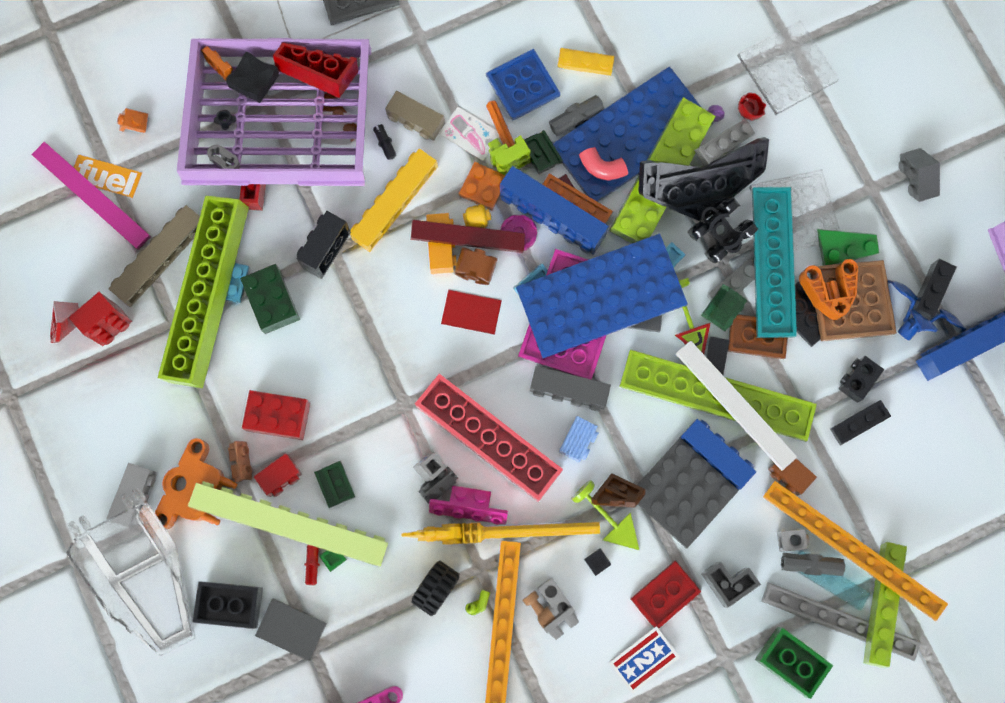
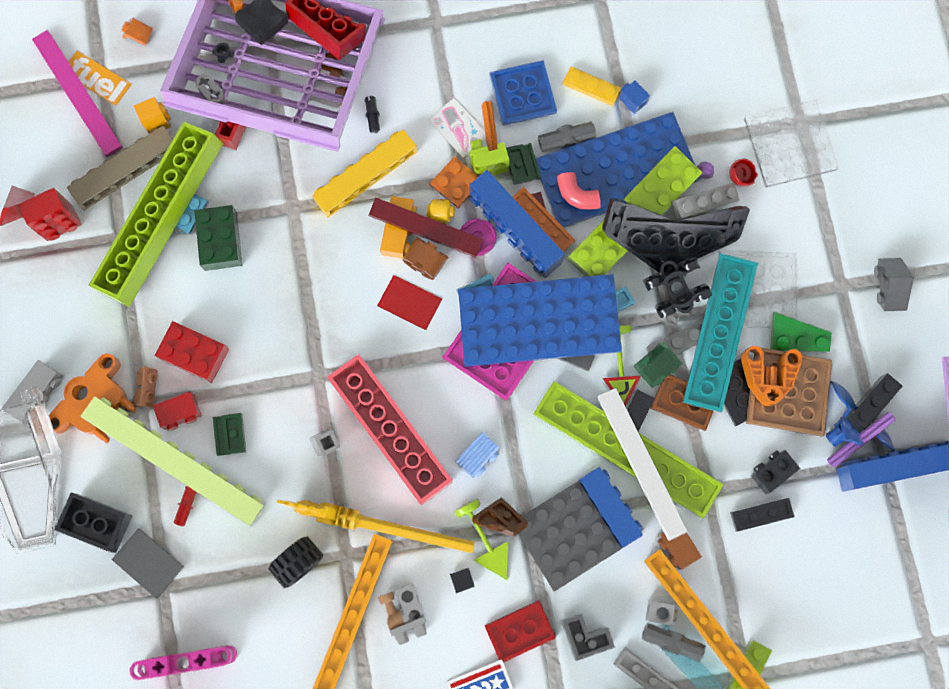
camera: 15 degrees right, 0 degrees up
(172, 196) = (152, 114): none -> light orange brick
(323, 244) = (283, 198): black brick -> none
(332, 560) = (206, 507): green tile -> none
(414, 116) = (408, 96): dark tan brick -> none
(431, 490) = (321, 464): dark grey hinge -> none
(469, 504) = (353, 490): dark pink bracket -> none
(479, 605) = (334, 591): lime arm -> none
(570, 388) = (483, 402): dark grey brick -> none
(629, 61) = (634, 96): none -> blue brick
(937, 320) = (867, 434): none -> medium lavender axle

